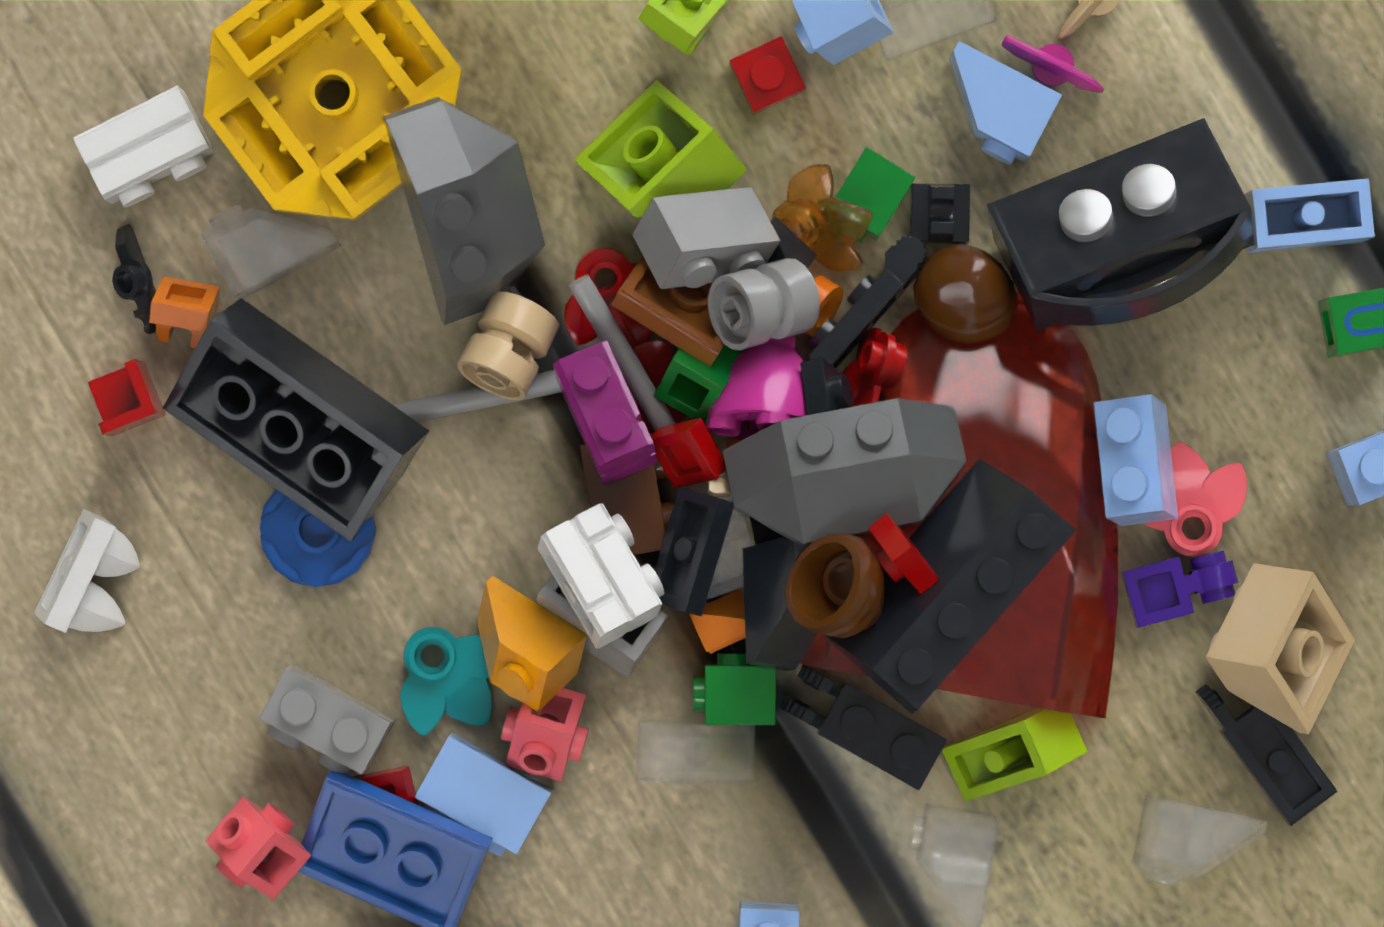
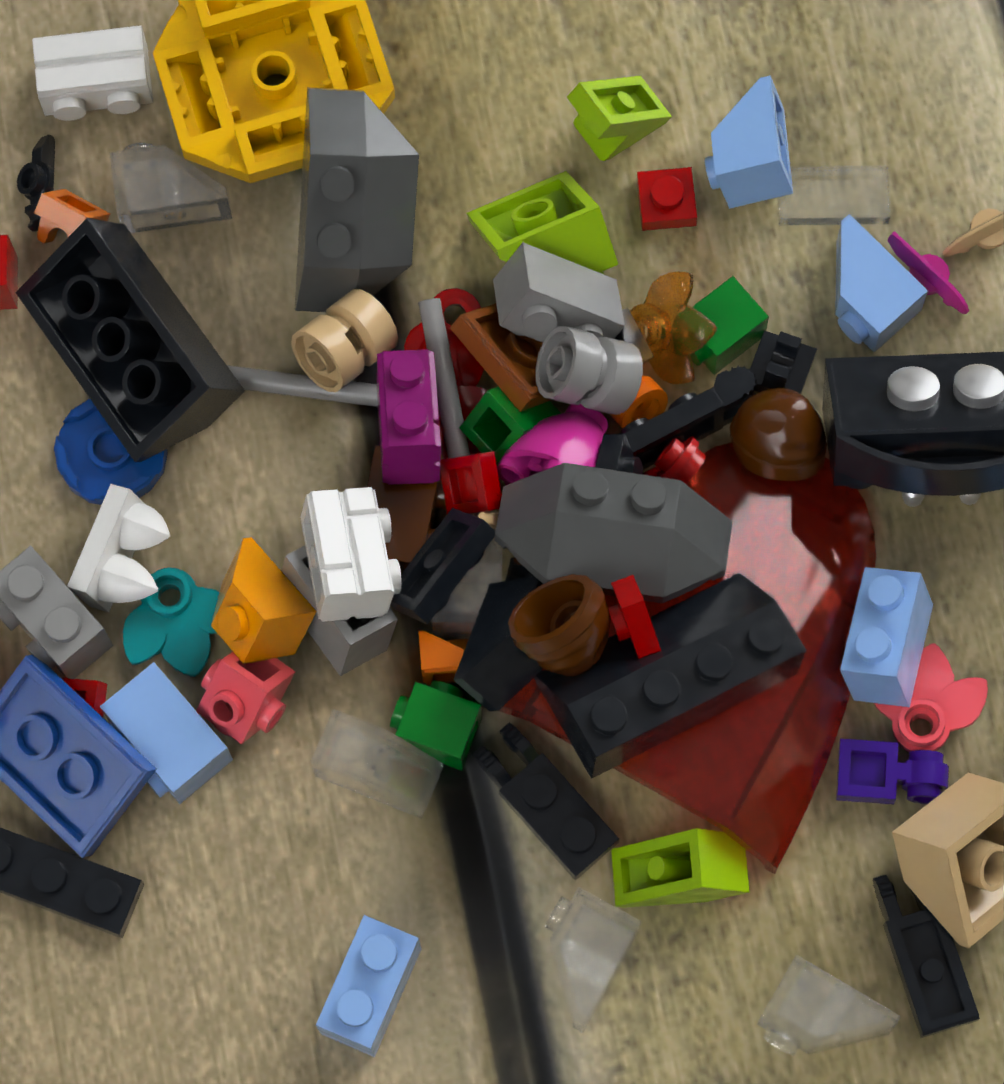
camera: 30 degrees right, 15 degrees down
(362, 656) = (106, 566): none -> white tile

